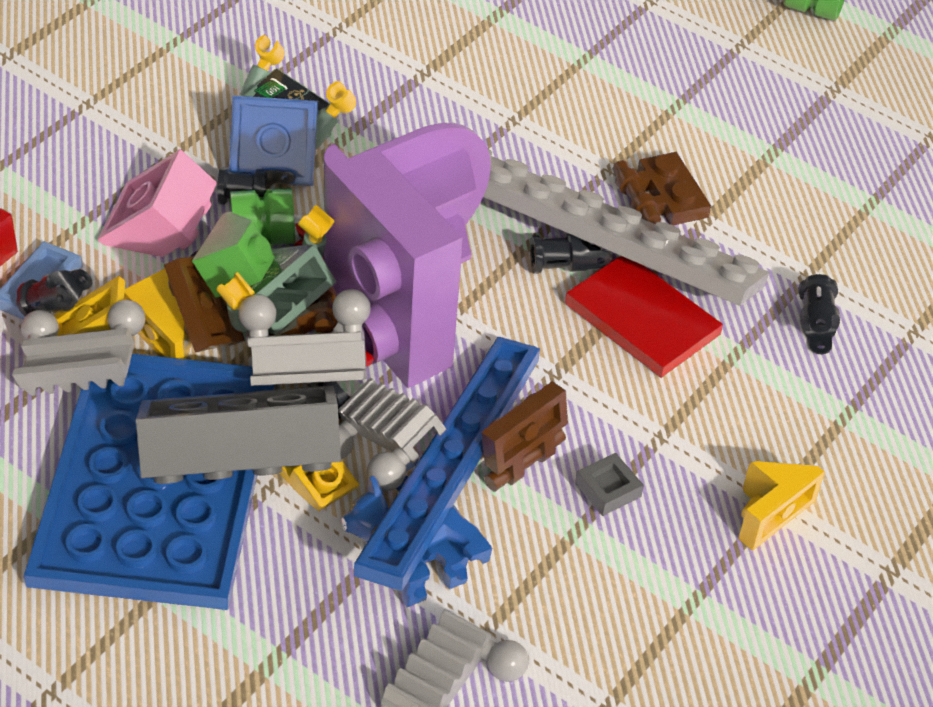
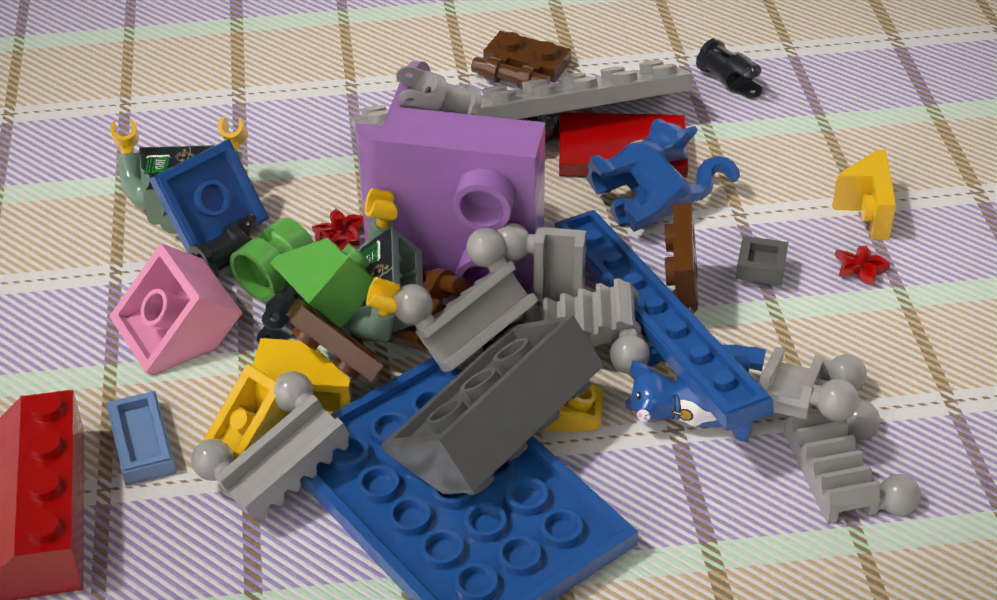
camera: 40 degrees left, 5 degrees down
(51, 296) = (195, 421): black piece -> none
(408, 354) = (557, 259): none -> light grey gear
(423, 164) = (435, 94): none -> light grey piece
(473, 587) = (798, 387): none -> light grey gear
(608, 355) = (651, 177): none -> blue animal
(693, 550) = (862, 264): none -> red plant

